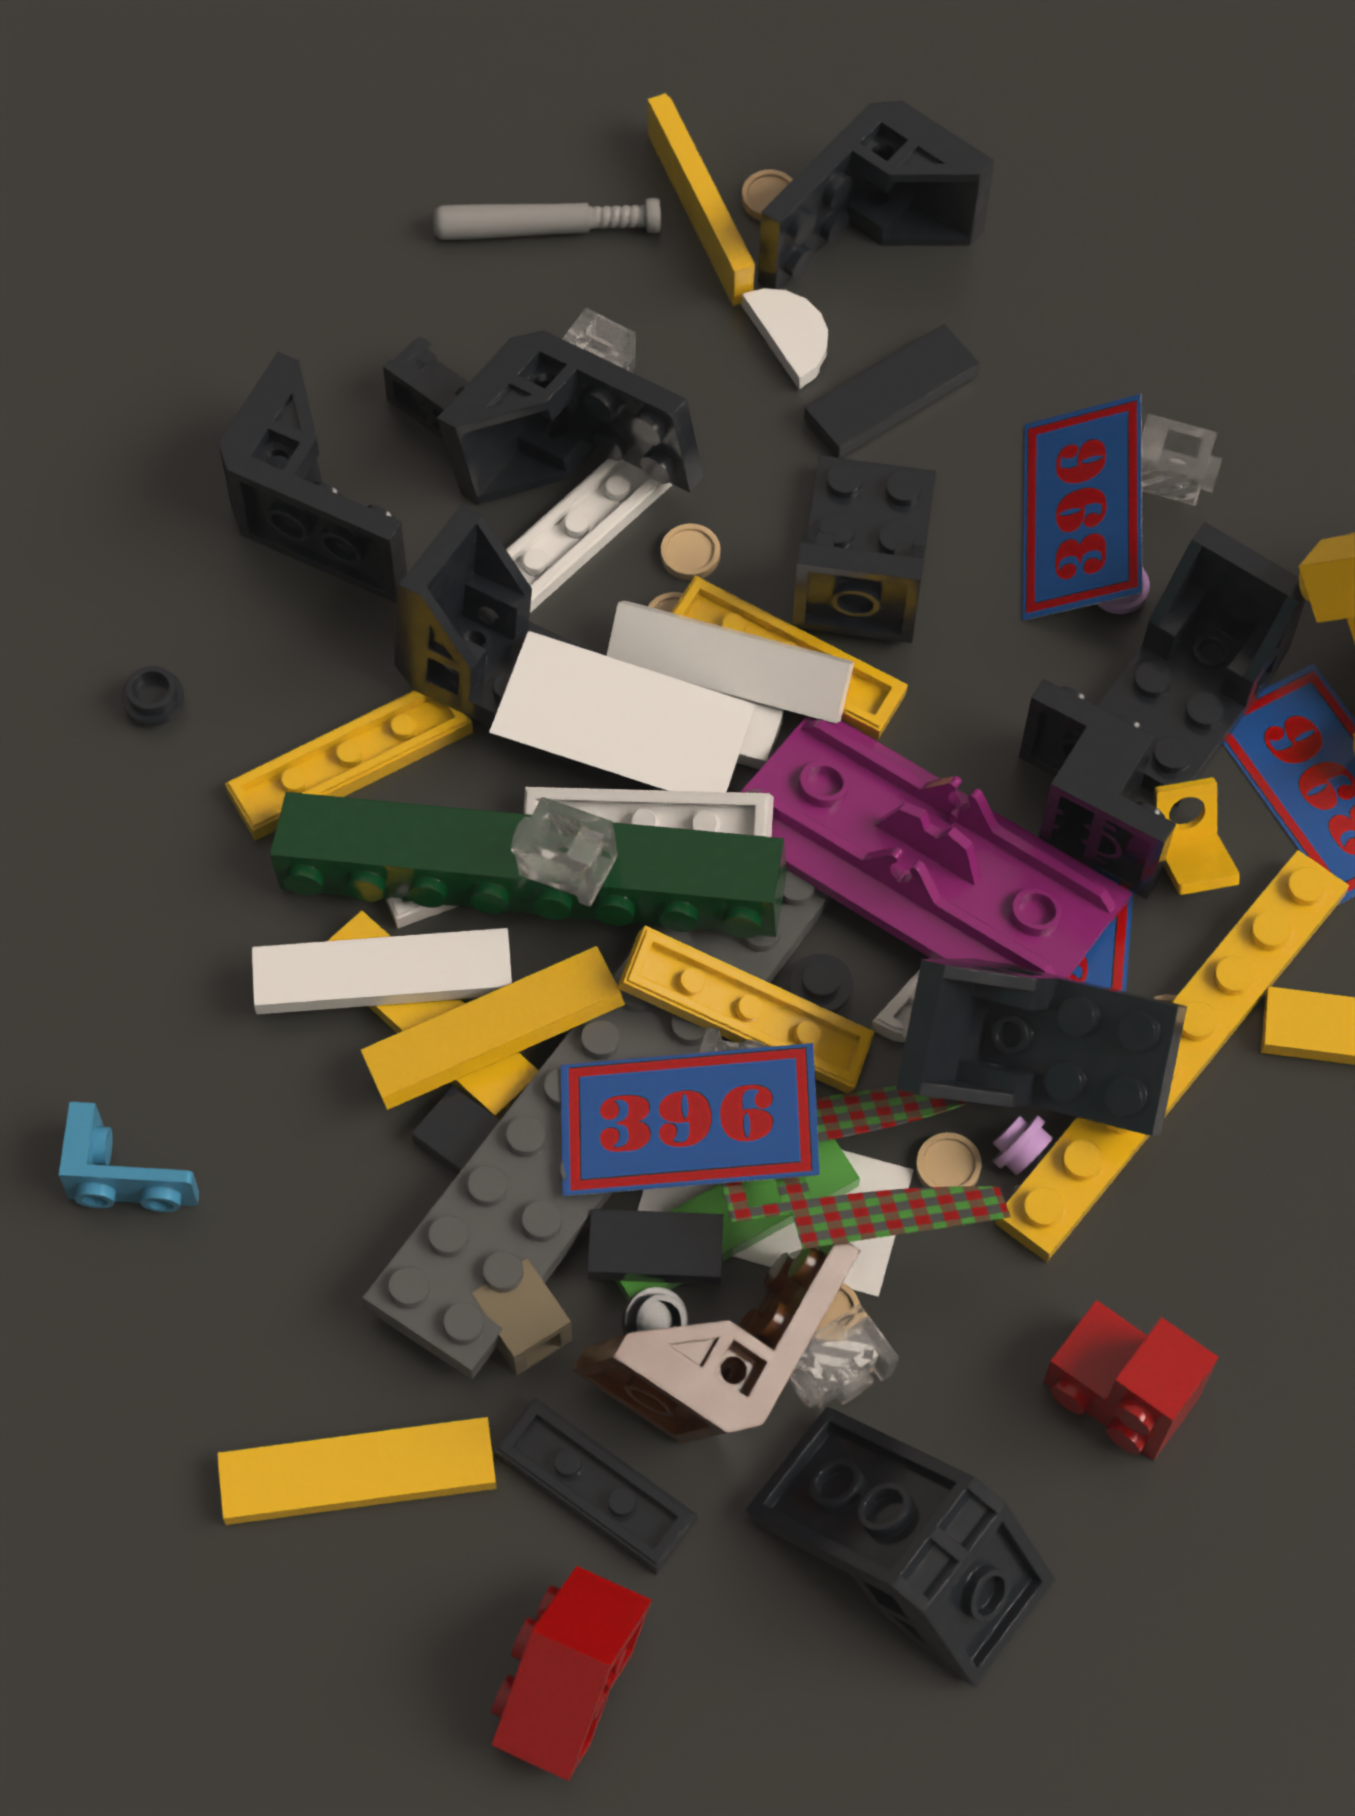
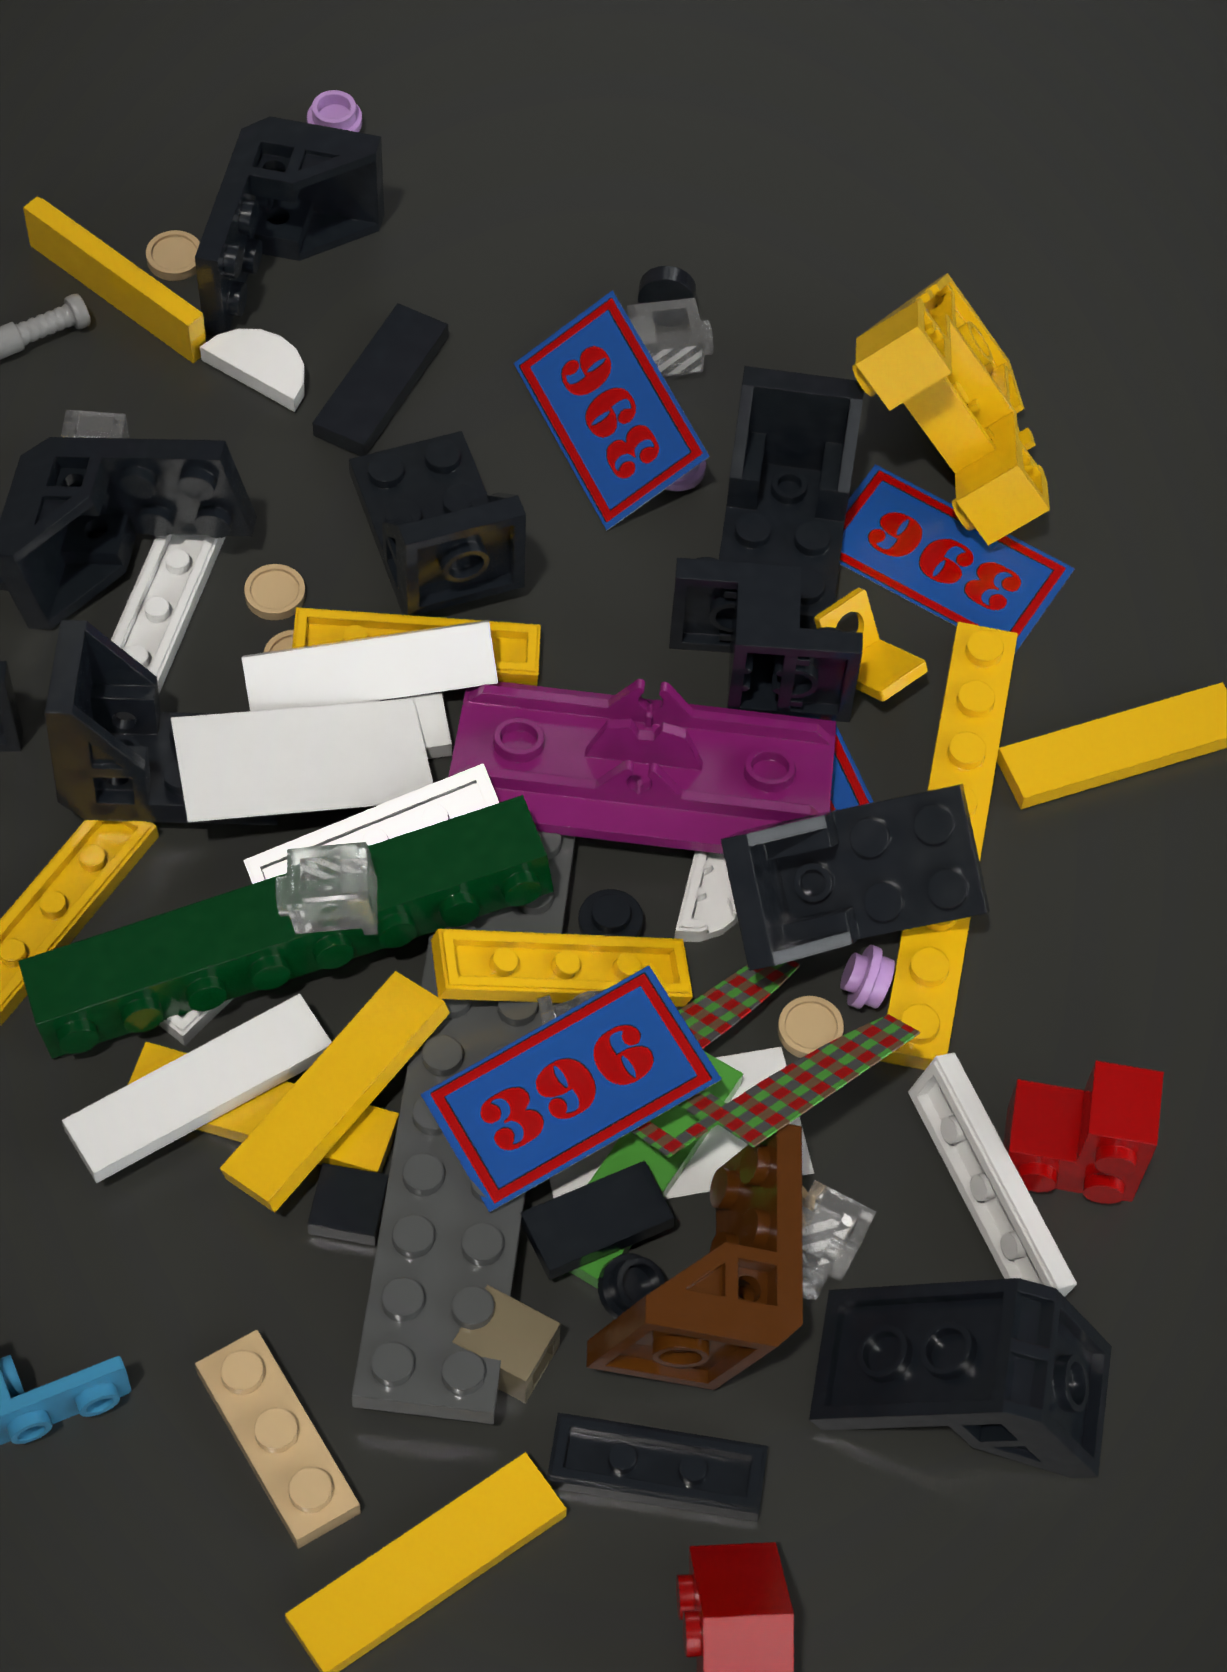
camera: 30 degrees left, 5 degrees down
(292, 1304) = (278, 1439): none -> tan plate
(985, 118) = (335, 110): none -> lavender plate
(1023, 1381) = (987, 1176): none -> white tile
(1202, 409) = (666, 284): none -> black tile

